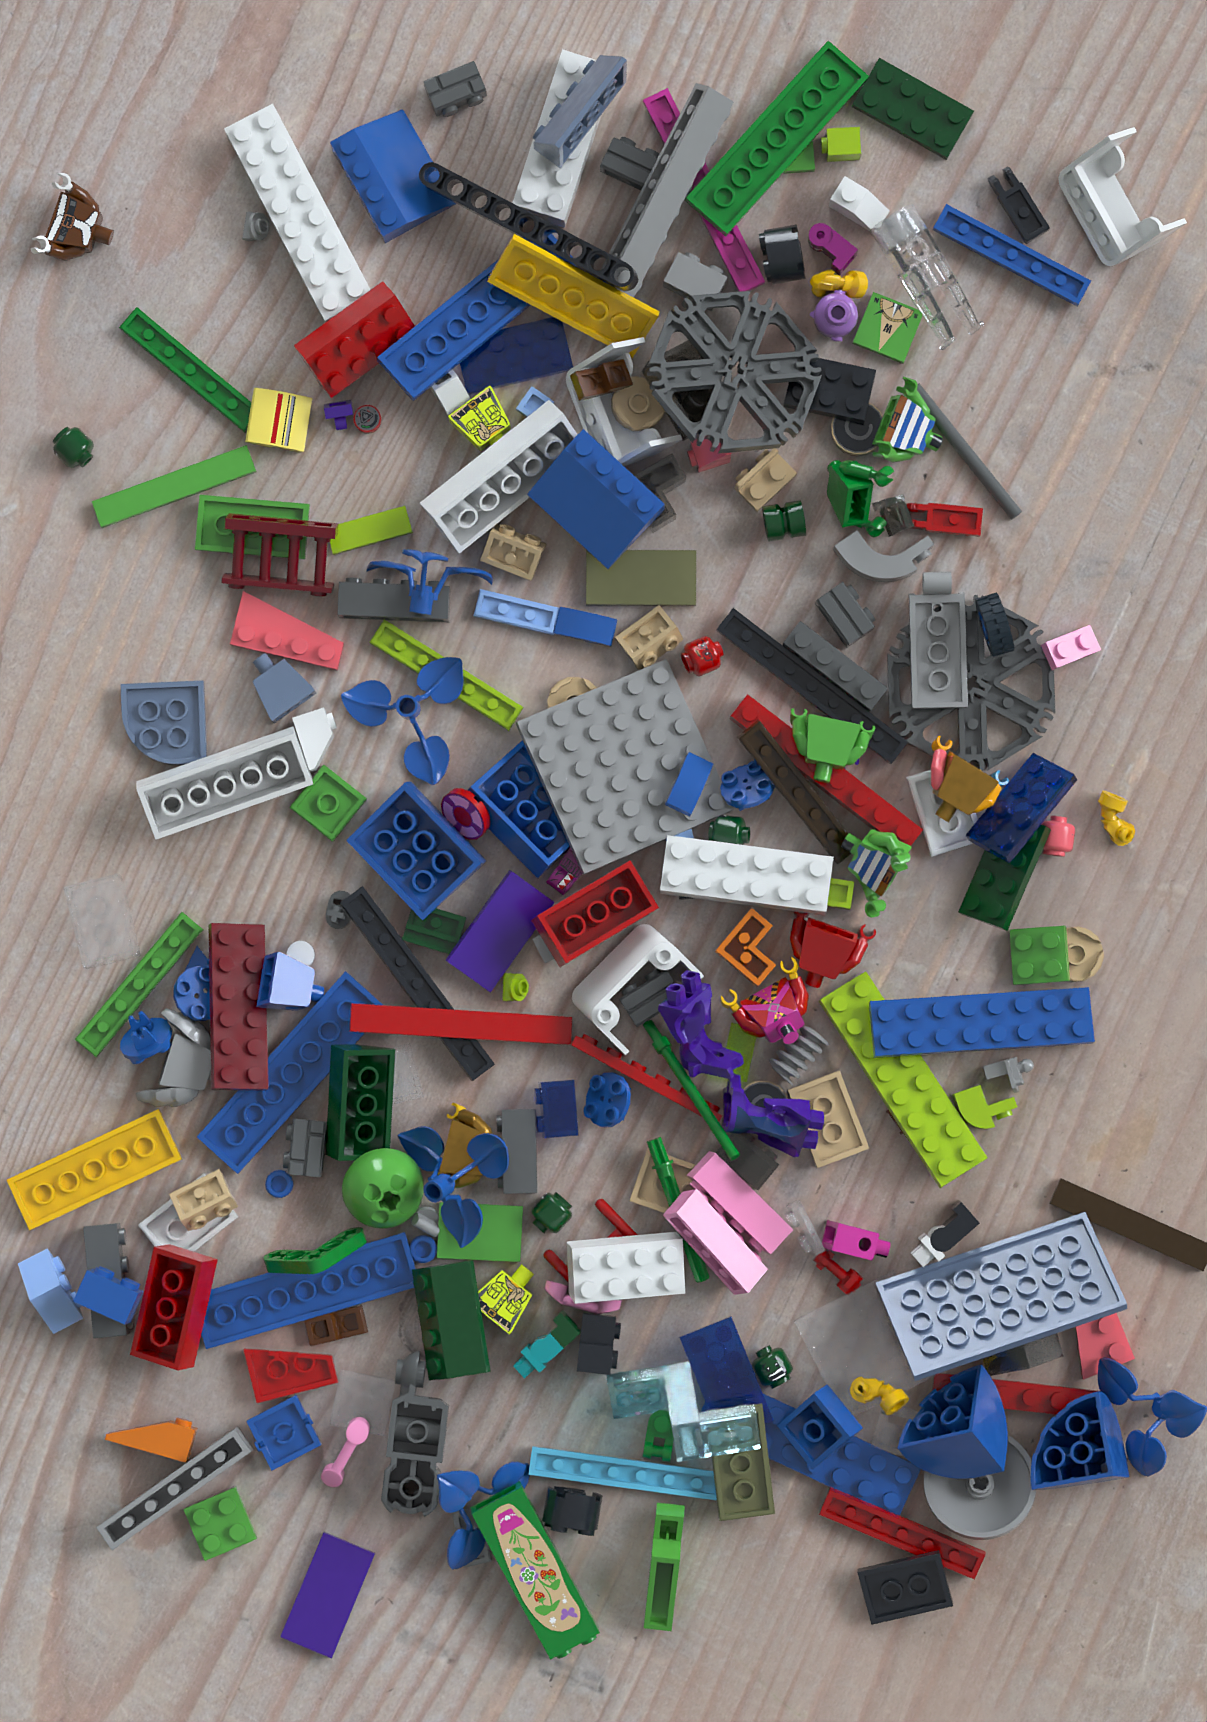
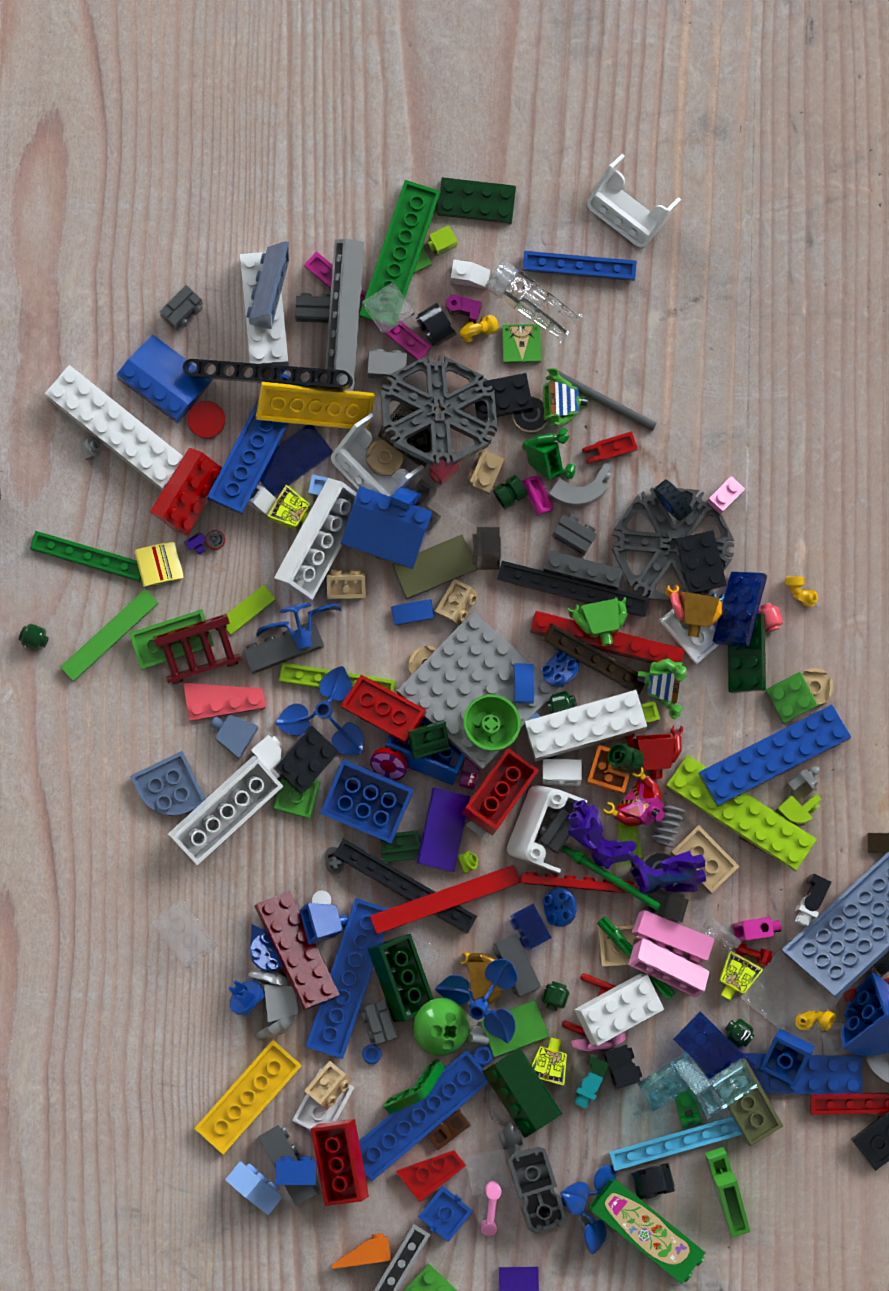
camera: 35 degrees left, 5 degrees down
(139, 984) = (225, 964): bright green tile -> none
(359, 761) = (306, 759): none -> black plate
(424, 253) = (206, 419): none -> red tile
(488, 738) = (383, 708): none -> red plate
(516, 612) = (364, 622): light blue tile -> none
(529, 805) = (428, 739): none -> dark green plate
(601, 379) = (355, 451): reddish brown slope -> none
(627, 805) = (493, 713): none -> bright green piece
(637, 470) = (405, 497): none -> blue slope
(689, 922) = (562, 772): none -> white hinge
(702, 656) = (495, 599): red head -> none
(719, 583) = (487, 548): none -> clear smoke brick
(728, 204) = (388, 308): none -> clear plate
(779, 941) = (625, 758): none -> dark green wheel
(803, 1290) = (737, 975): none -> torso
(819, 540) = (538, 495): none -> dark pink tile
(835, 315) = (485, 349): medium lavender piece -> none
(895, 513) = (578, 457): clear smoke tile -> none
(938, 645) = (642, 528): light grey hinge -> none
(997, 723) = (701, 562): none -> black plate
(1019, 207) = (570, 233): black hinge -> none

